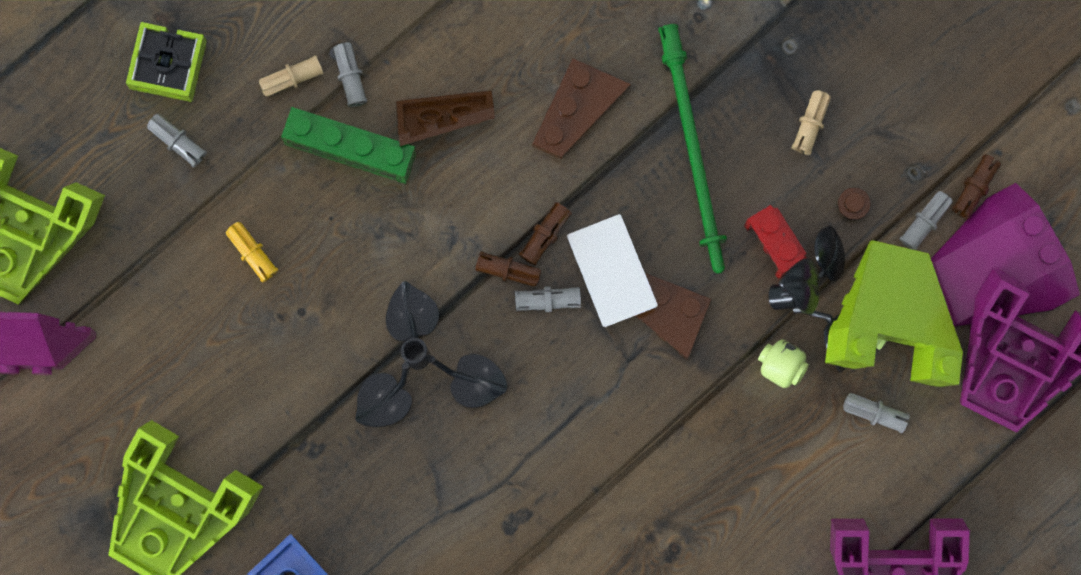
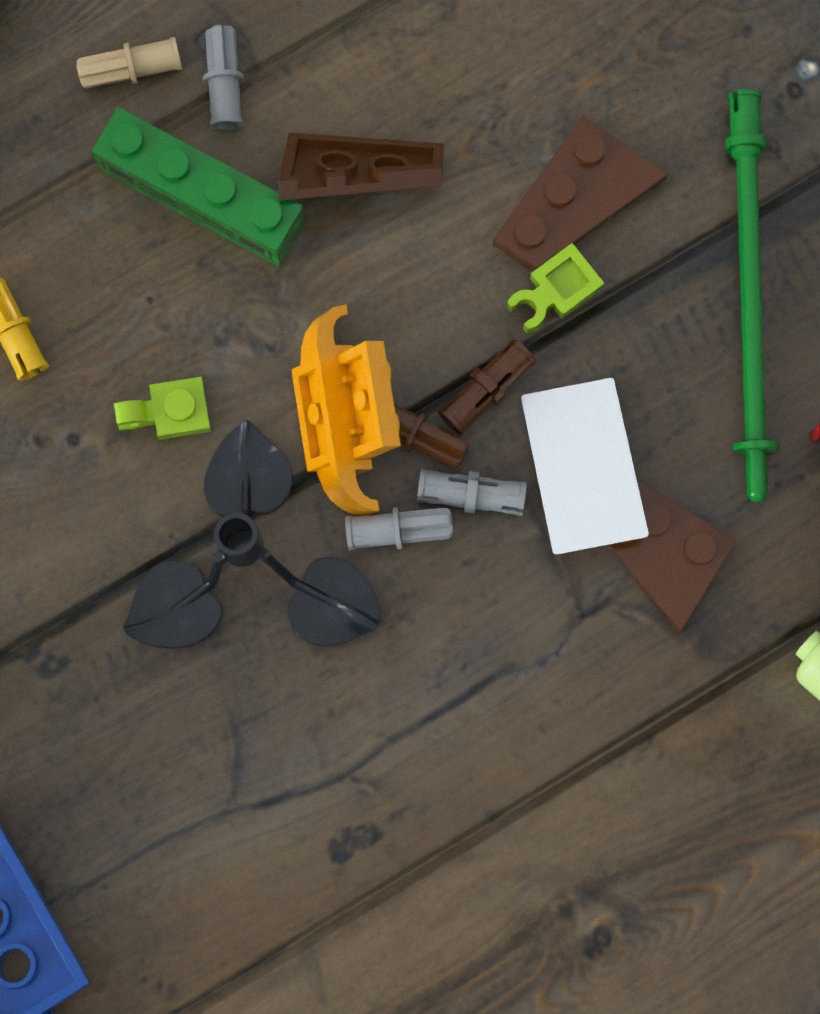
camera: 10 degrees right, 0 degrees up
(359, 282) = (175, 408): none -> lime plate
(462, 264) = (344, 410): none -> light orange plate
(508, 328) = (398, 528): none -> light grey axle
(578, 164) = (560, 284): none -> lime plate

